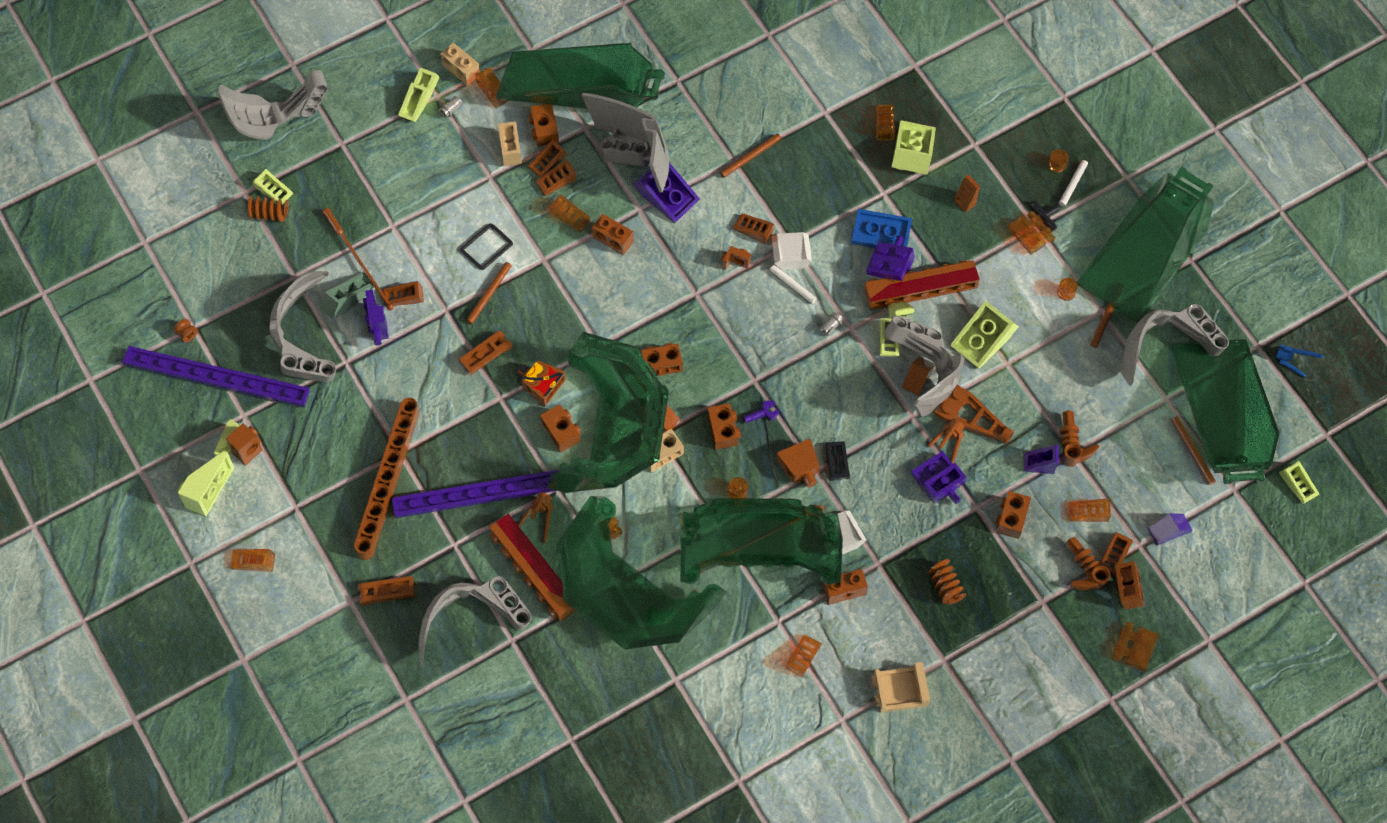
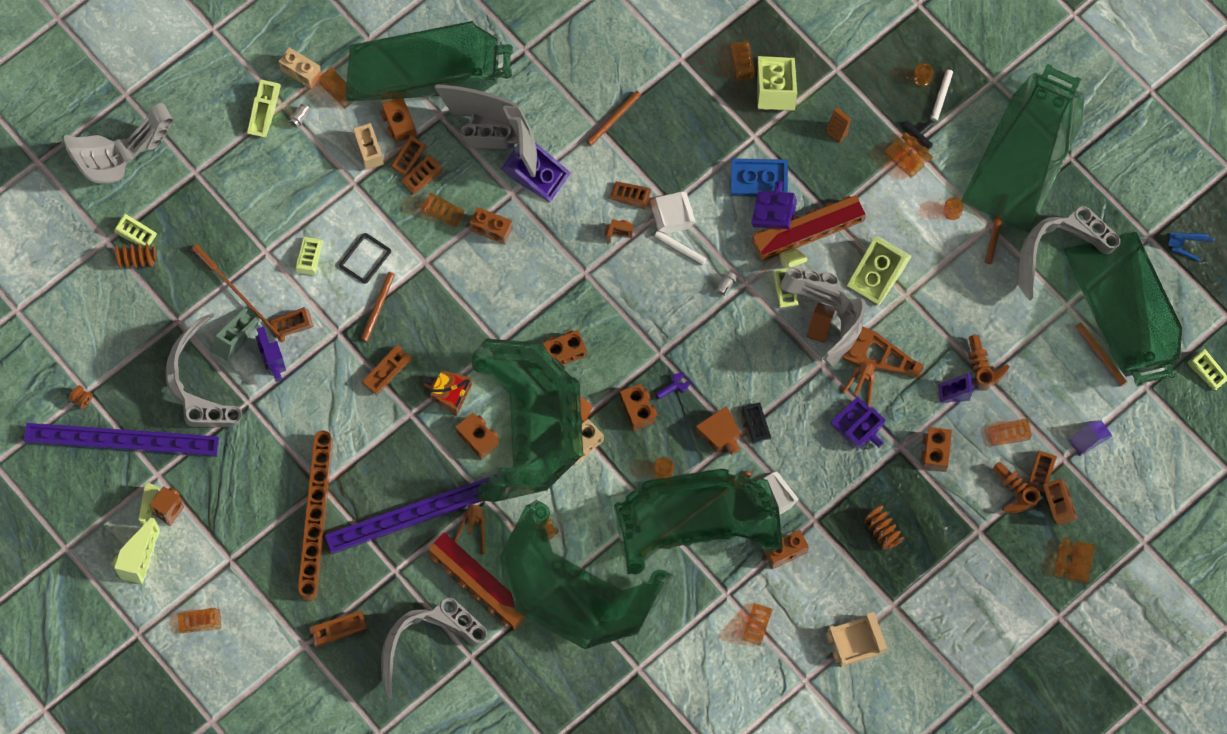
camera: 10 degrees left, 5 degrees up
(428, 247) = (307, 269): none -> yellowish green slope

